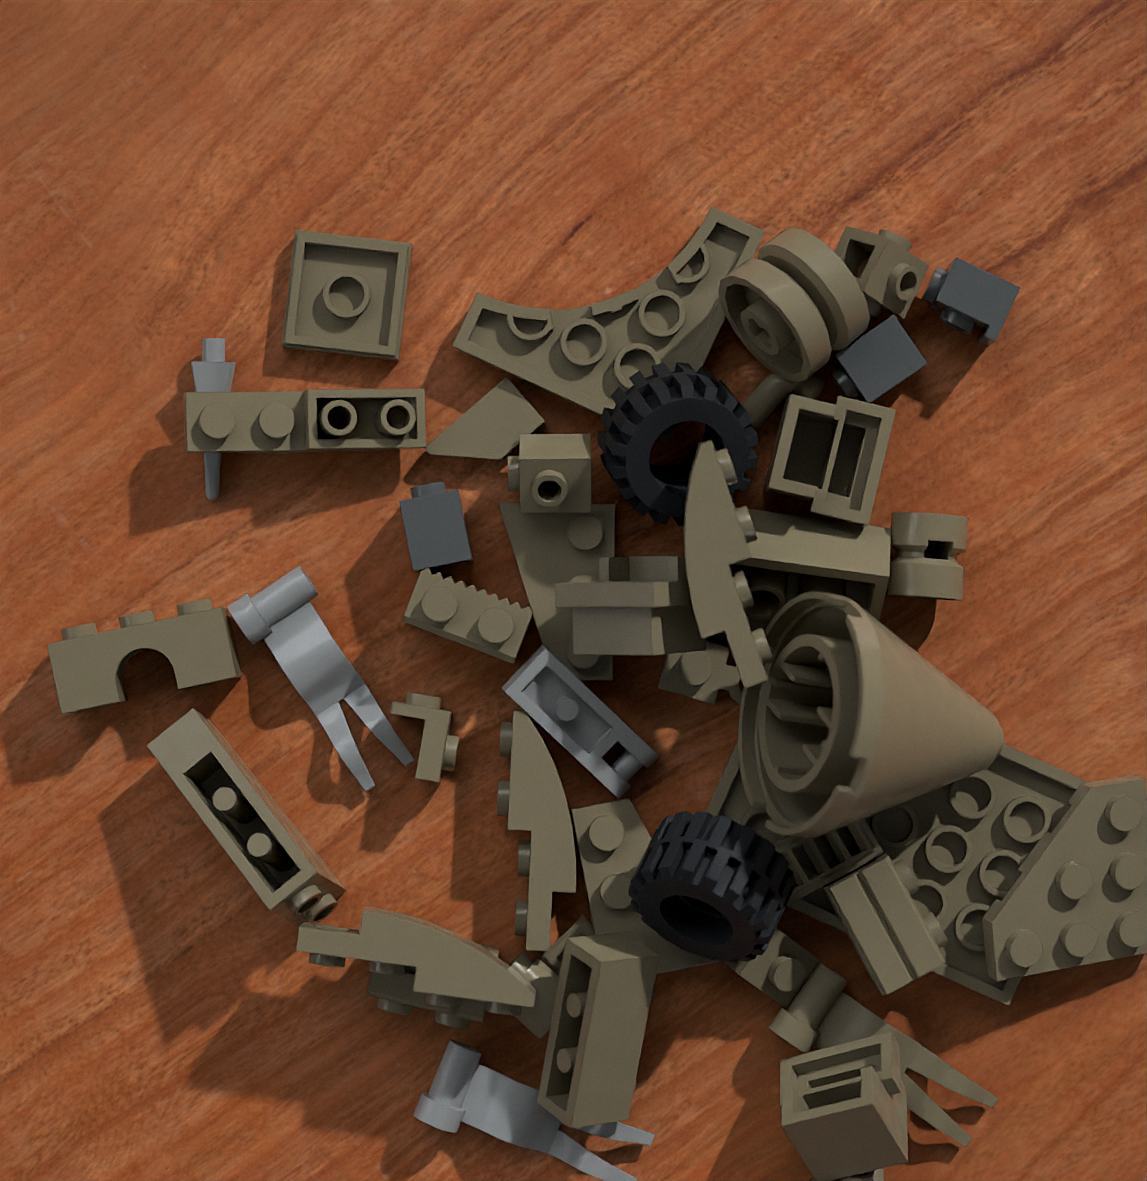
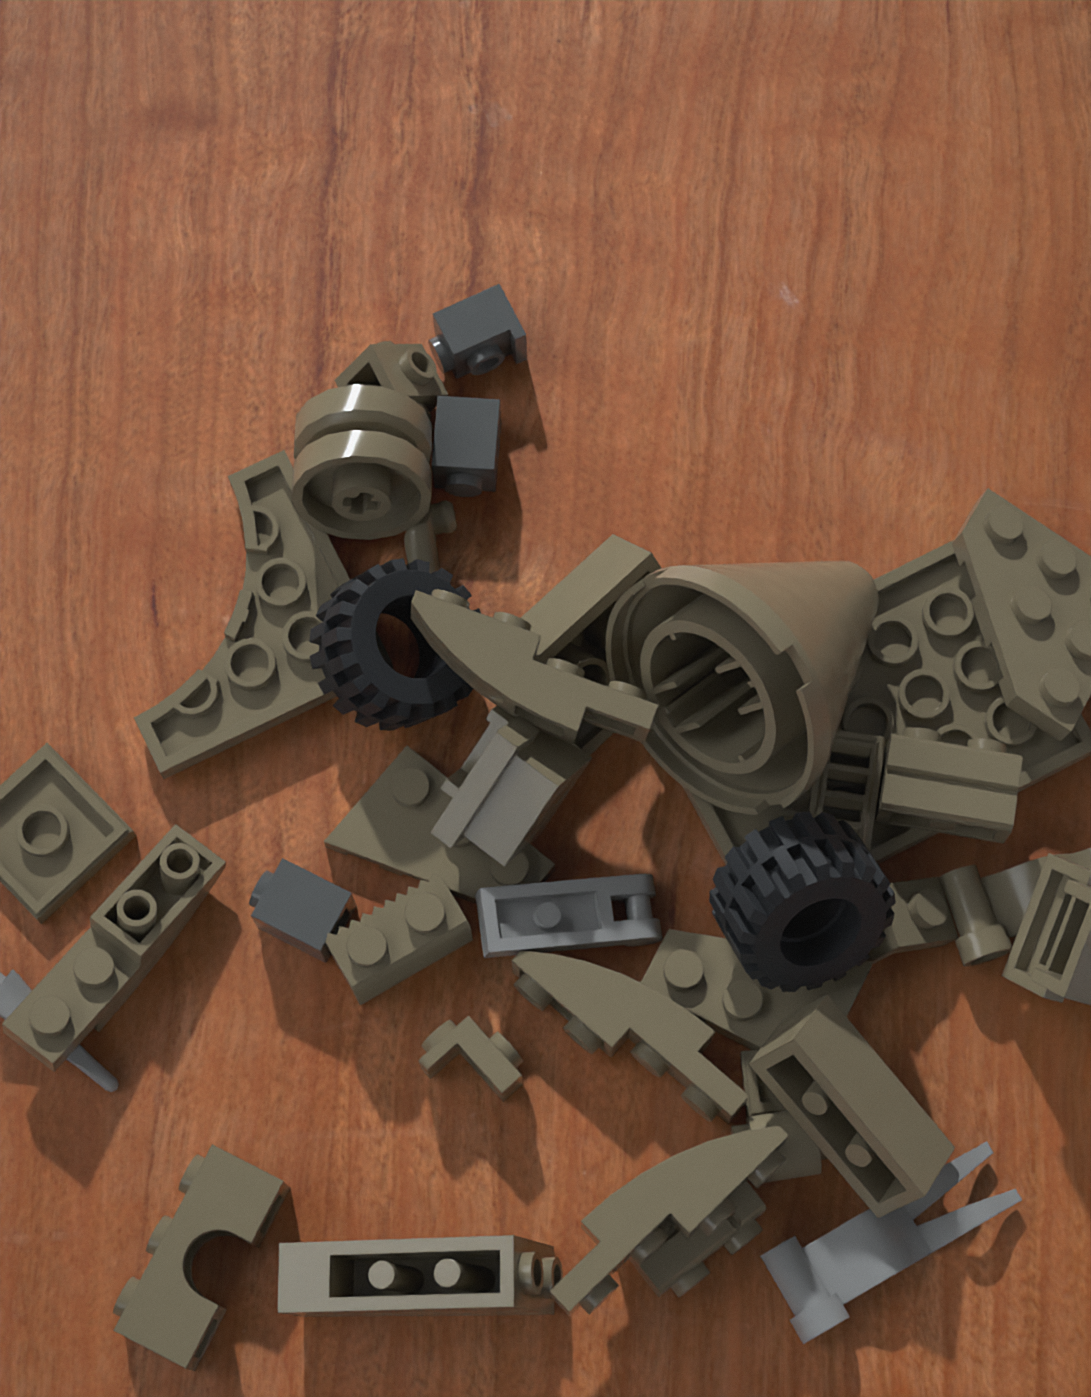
camera: 45 degrees left, 15 degrees down
(315, 665) = (333, 1109): light grey flag -> none
(489, 427) = (255, 800): dark tan tile -> none
(552, 473) = (337, 772): dark tan brick -> none
(701, 674) = (610, 786): dark tan plate -> none
(830, 456) = (509, 536): dark tan plate -> none
(931, 577) = (655, 519): dark tan wheel -> none

